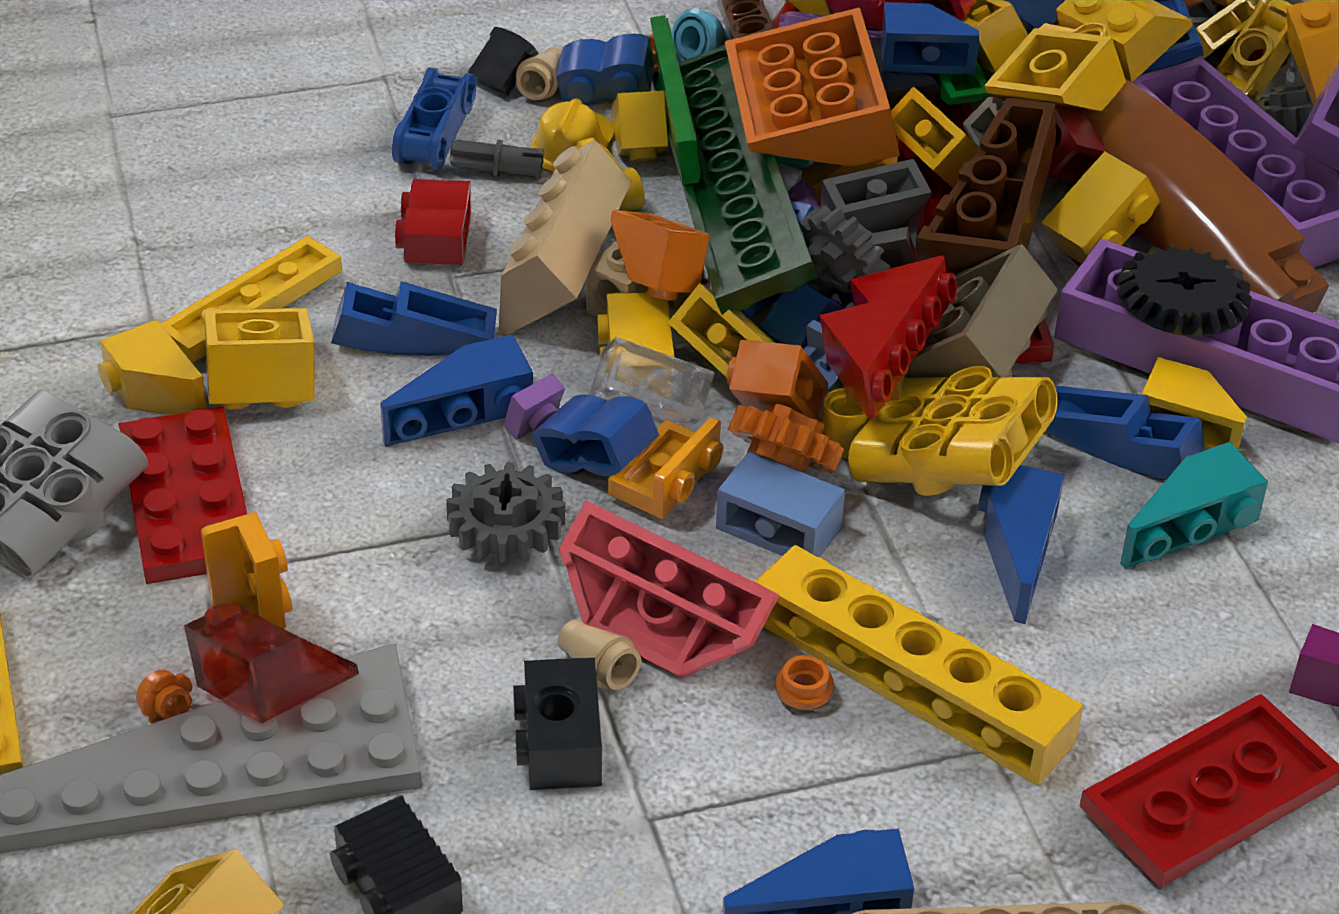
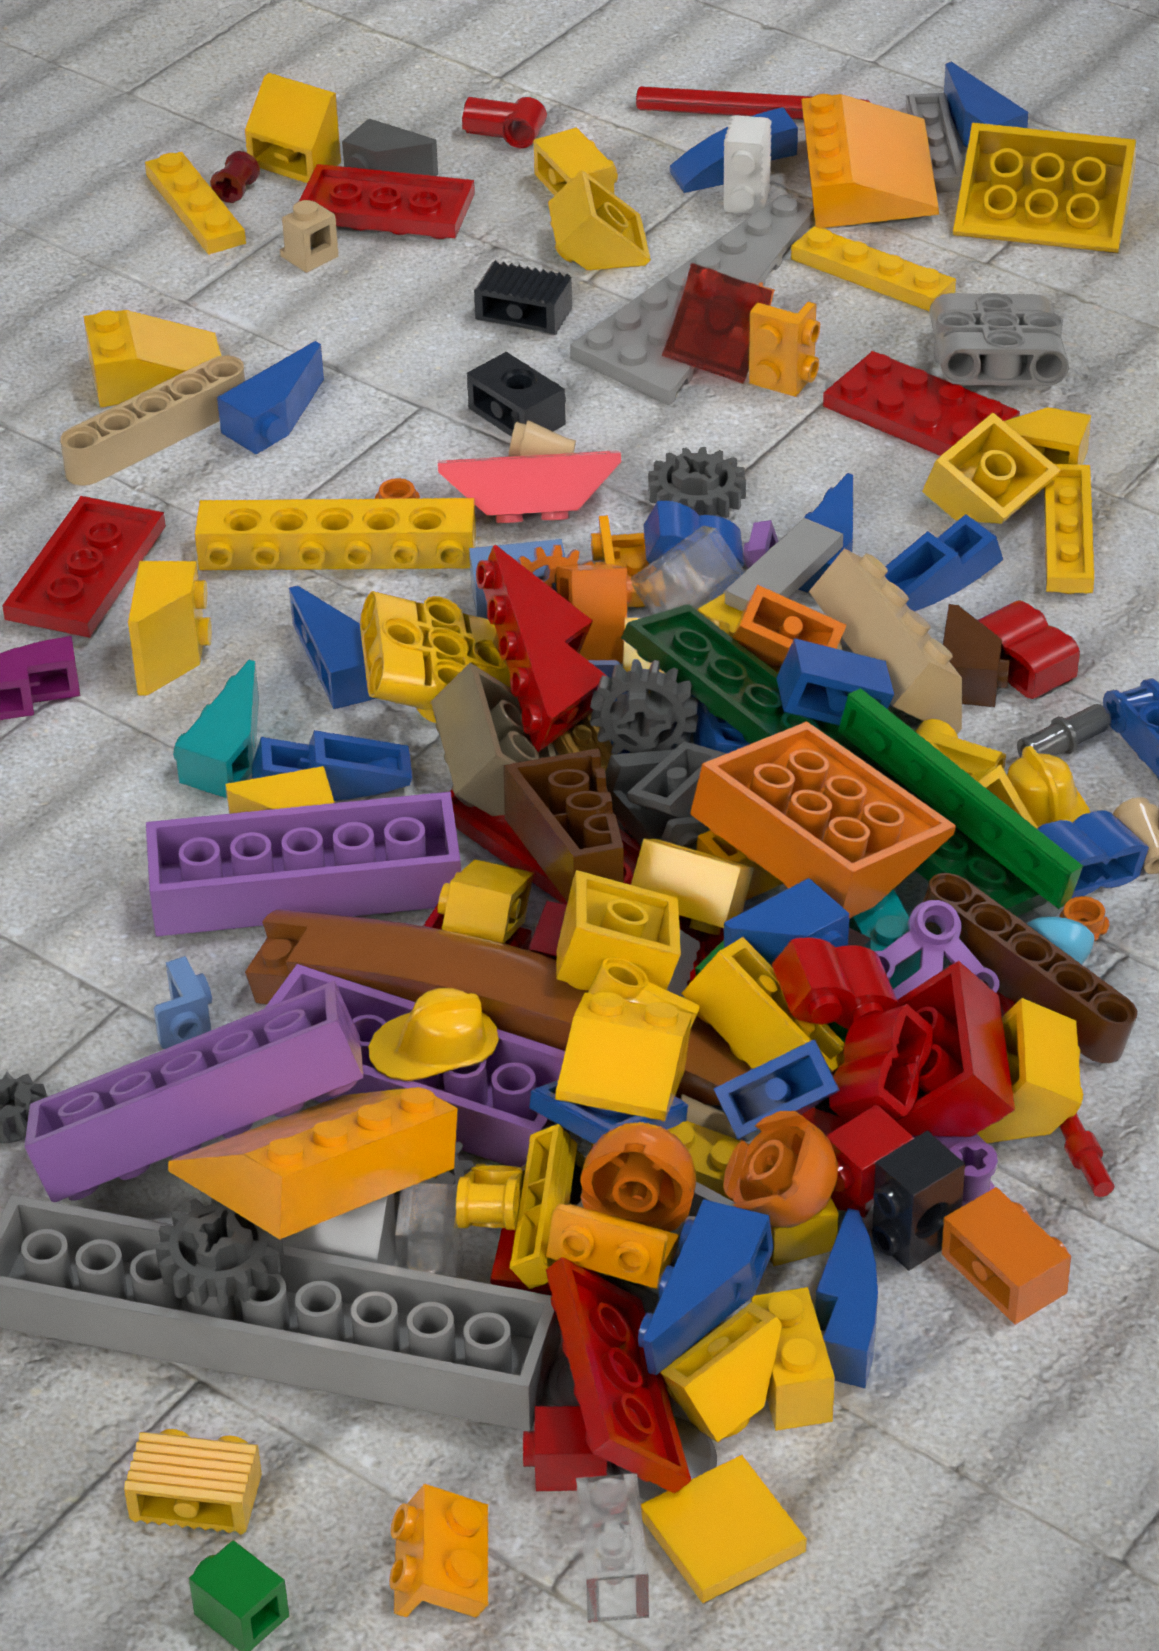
camera: 145 degrees right, 0 degrees up
(488, 233) = (975, 657): none -> reddish brown slope
(563, 335) = (787, 563): none -> light grey tile
(676, 184) = (819, 678): none -> blue brick
(1155, 294) = (318, 845): black gear -> none
(1189, 612) = (167, 622): none -> yellow slope
(1236, 122) = (436, 1037): none -> yellow piece

